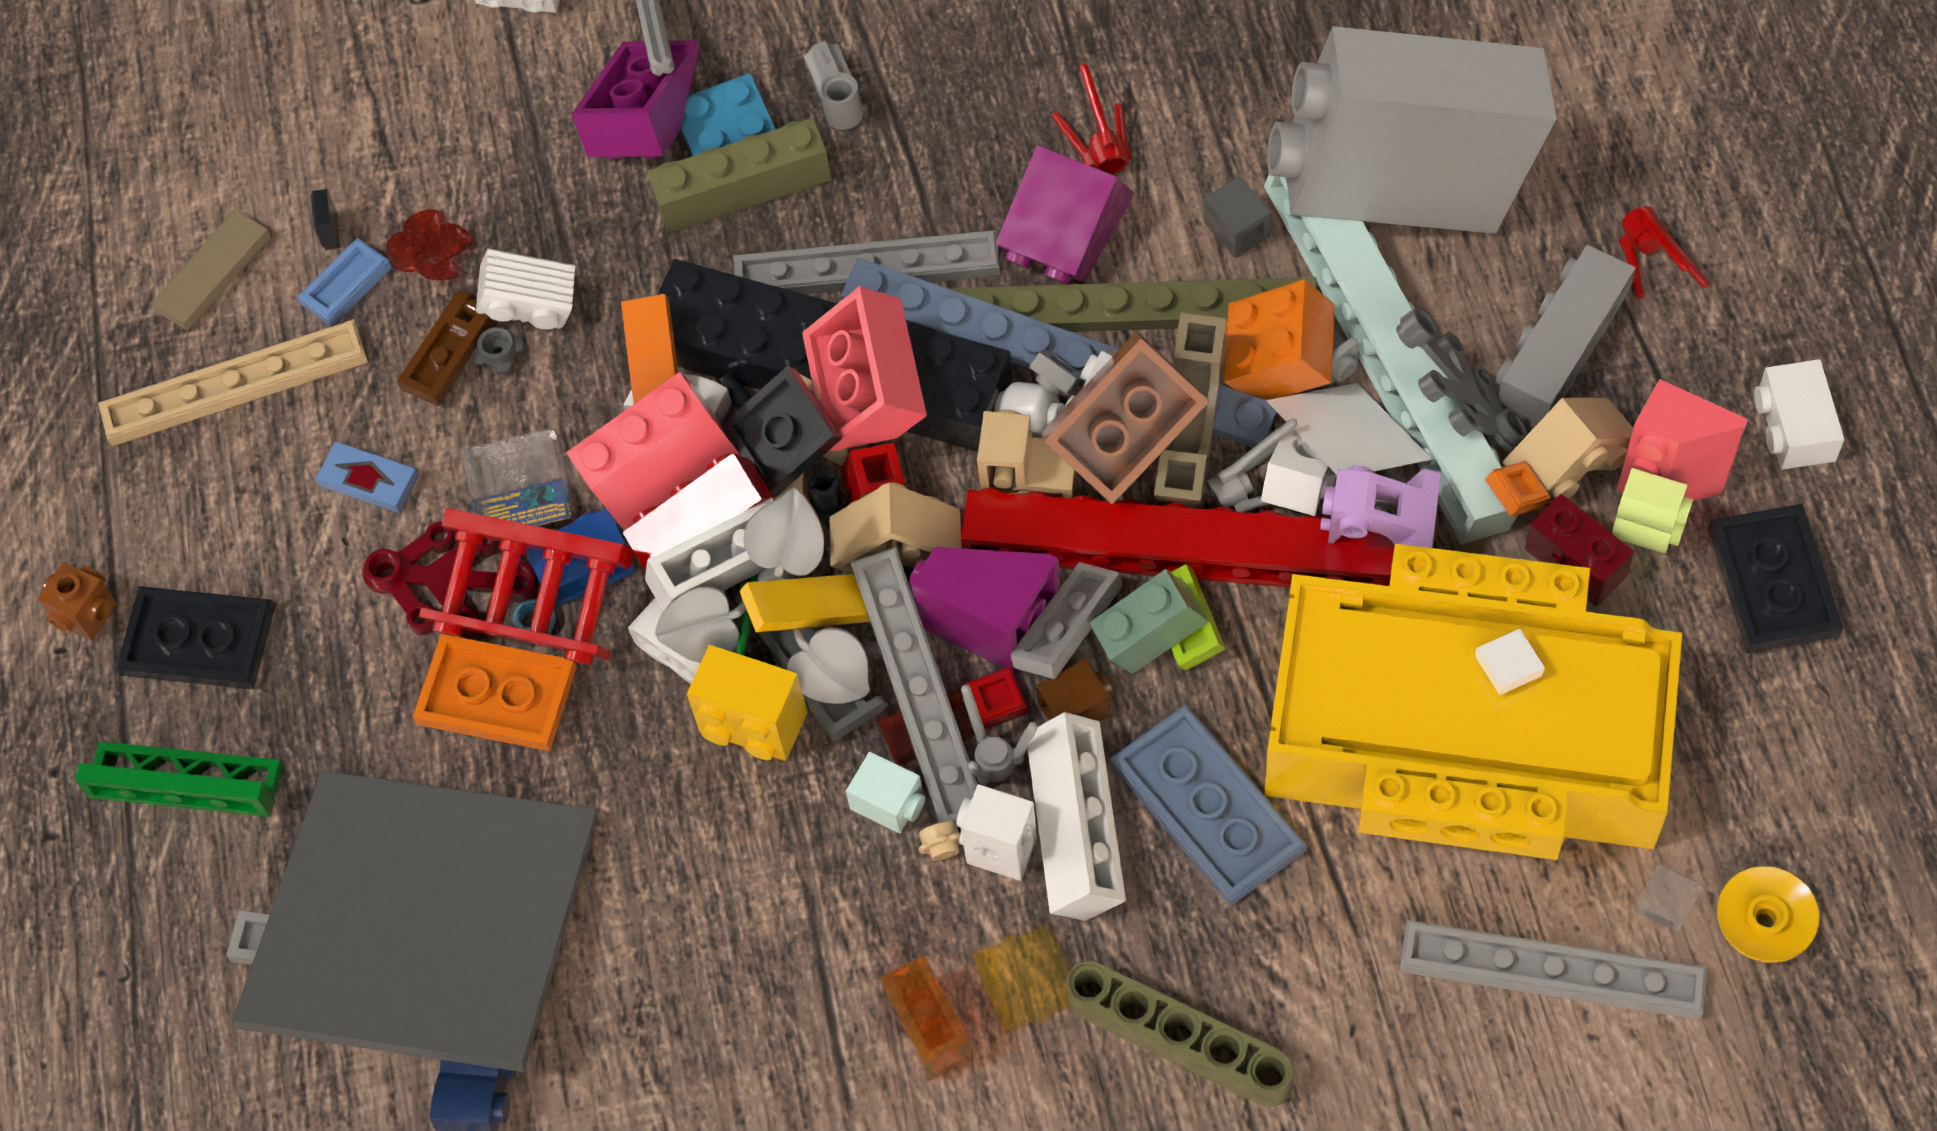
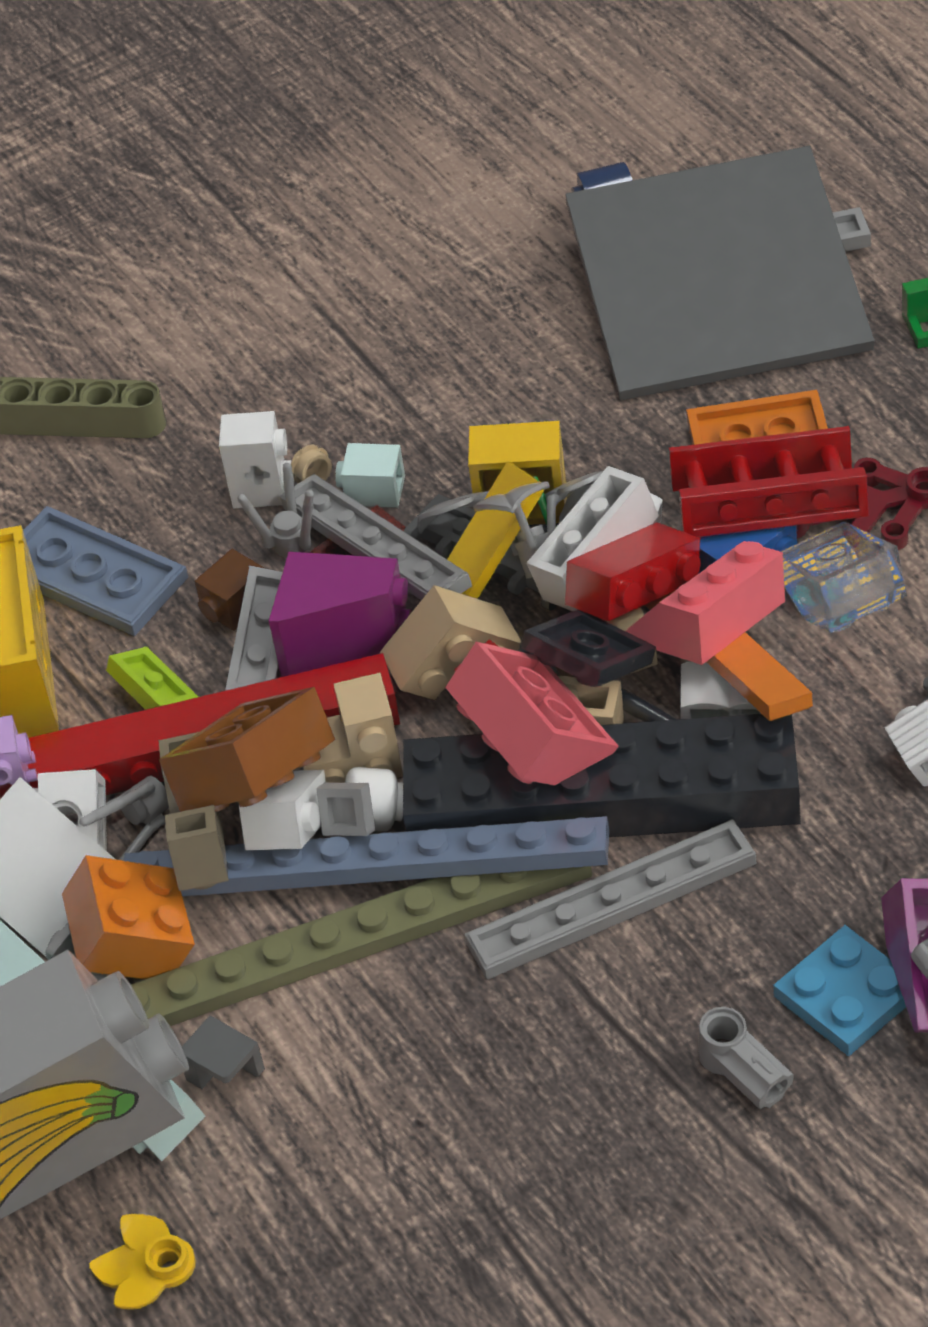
camera: 160 degrees right, 15 degrees down
(739, 175) = (789, 920): olive brick -> none
(926, 1018) = (266, 340): clear orange brick -> none
(1024, 978) = (198, 412): clear yellow piece -> none
(1062, 216) = (409, 999): magenta slope -> none
(1075, 817) = (193, 496): white brick -> none
(1106, 150) = (400, 1093): red plant -> none
(1149, 621) = (178, 646): sand green brick -> none

